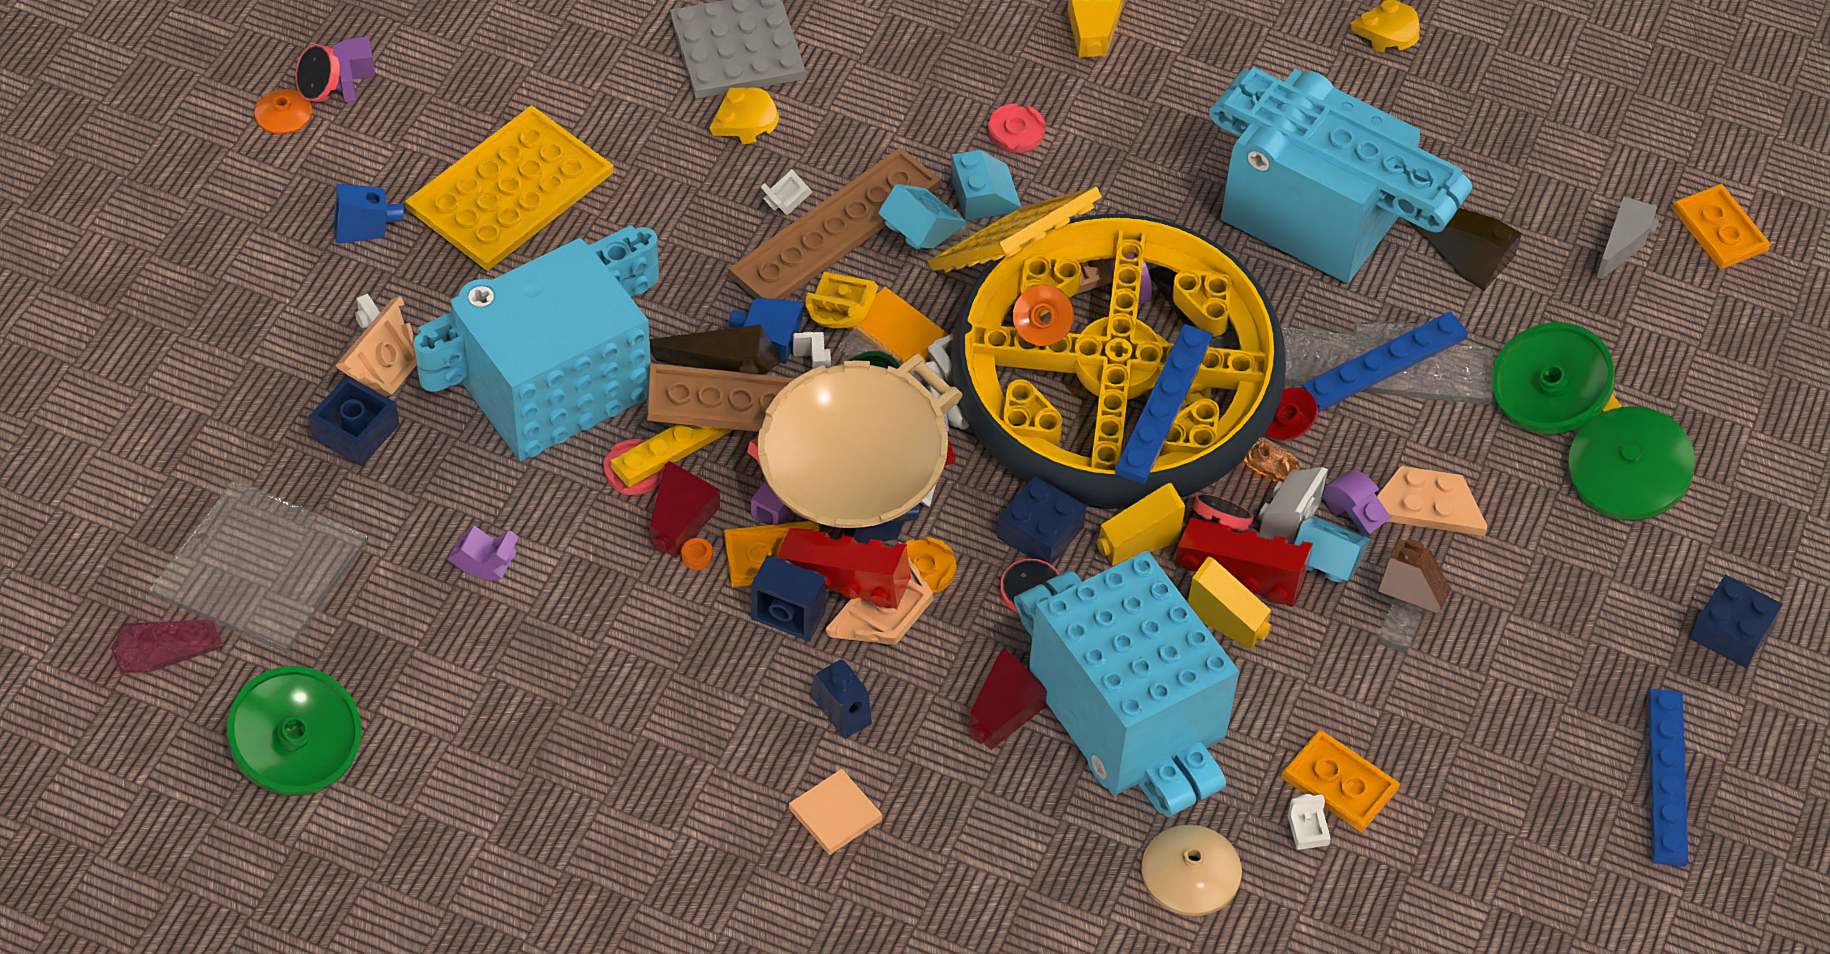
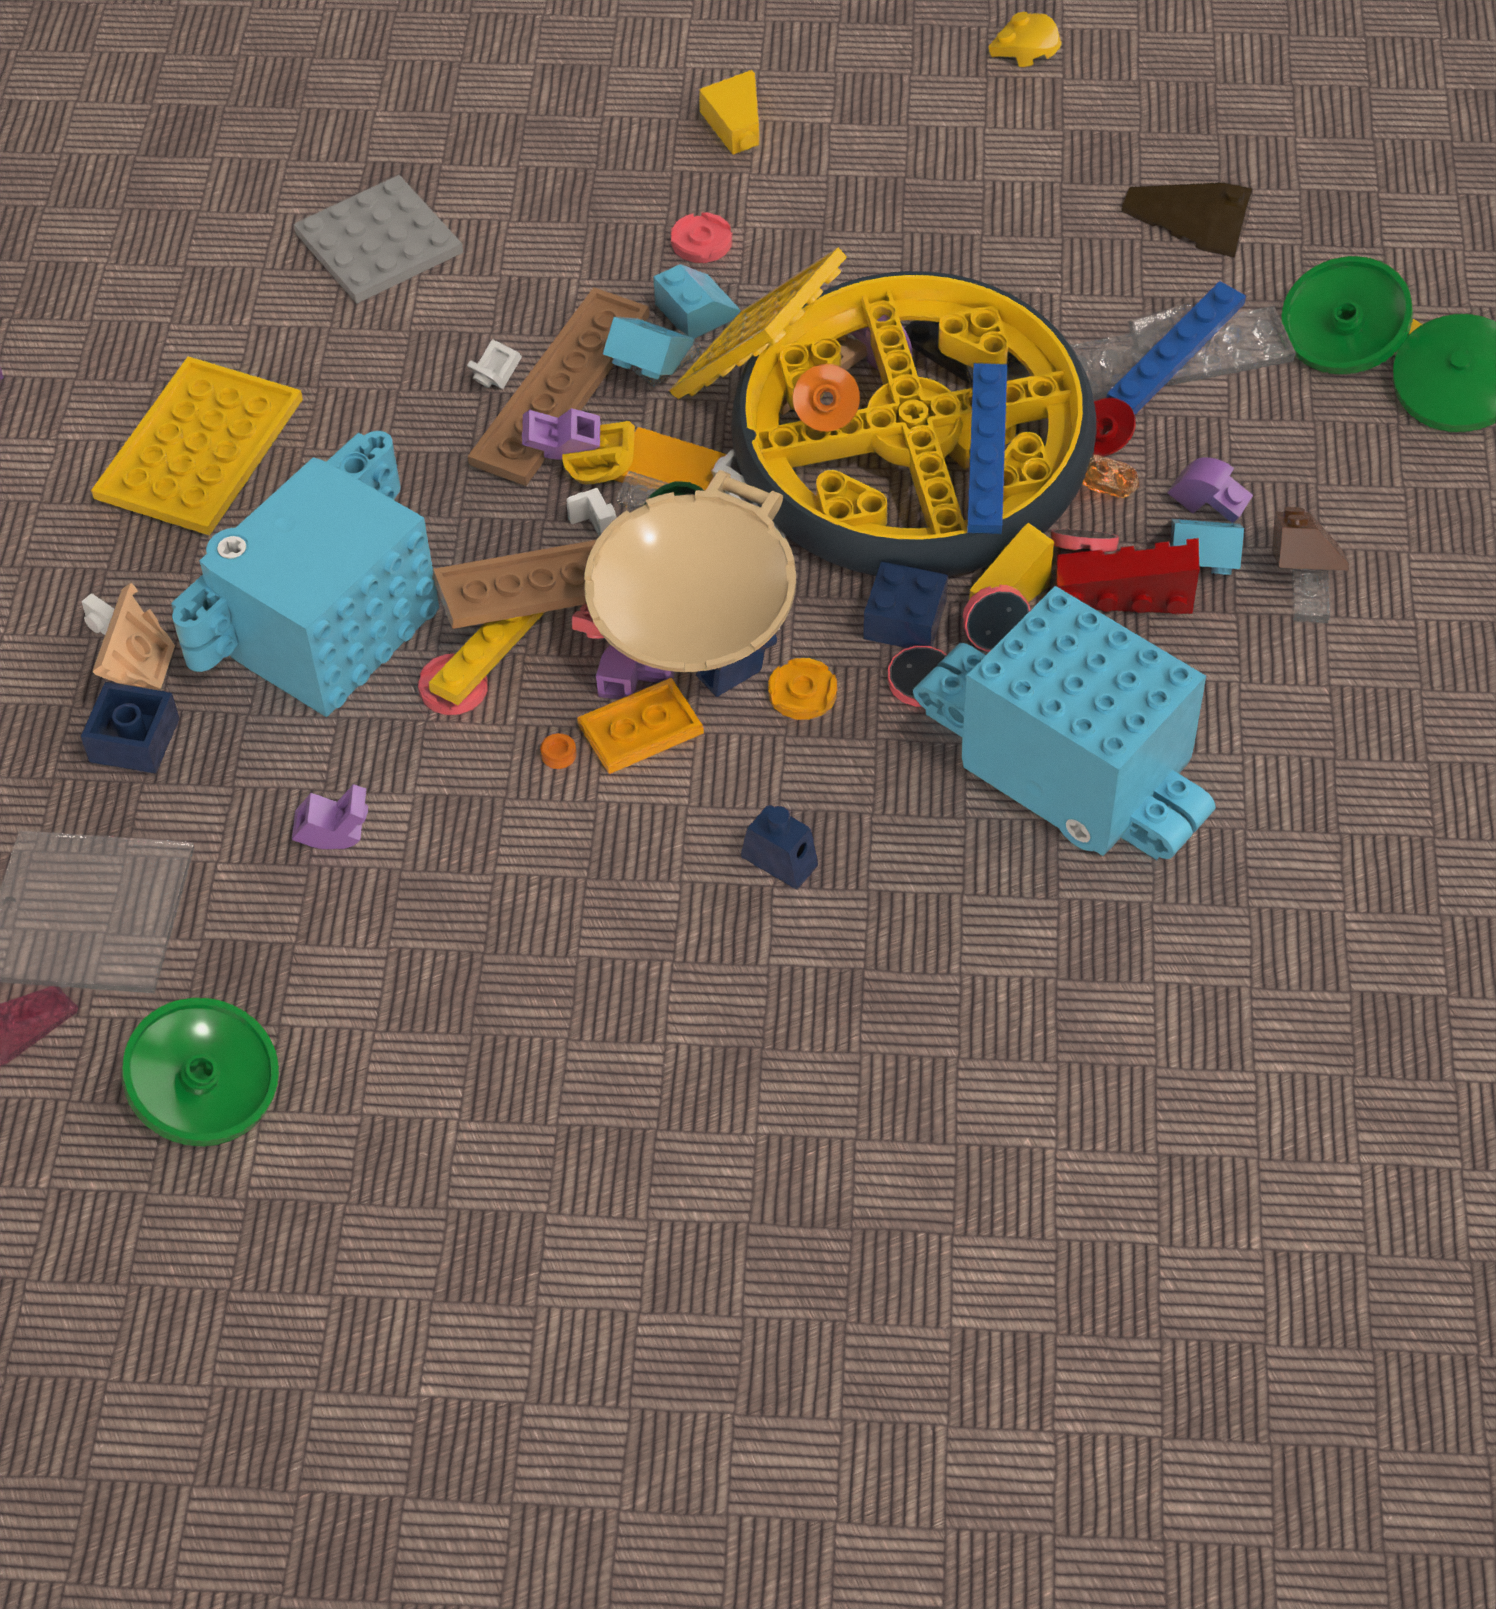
camera: 15 degrees left, 0 degrees up
(362, 213) = (50, 515): blue torso -> none
(681, 509) = (524, 709): dark red slope -> none
(732, 349) = (510, 531): dark brown wedge -> none
(745, 114) = (417, 301): yellow slope -> none
(777, 318) = (535, 501): blue torso -> none
(788, 597) = (680, 762): dark blue brick -> none
(811, 275) = (556, 436): none -> medium lavender brick
(835, 811) = (822, 966): light nougat tile -> none
(851, 567) = (727, 710): red wedge -> none
(885, 625) = (780, 737): light nougat wing -> none
(1005, 701) = (951, 796): dark red slope -> none
(1108, 549) = (993, 615): none -> black tile
(1190, 885) = (1214, 919): tan dish -> none
(1228, 605) = (1140, 618): yellow slope -> none
(1293, 503) = (1150, 508): white slope -> none
(1308, 821) = (1313, 817): white bracket -> none
(1326, 170) = (1047, 177): medium azure piece -> none
(1347, 781) = (1322, 767): light orange tile -> none
(1432, 501) = (1285, 468): light nougat wing -> none
(1629, 233) = (1348, 162): light grey slope -> none
(1721, 226) = (1431, 132): light orange tile -> none

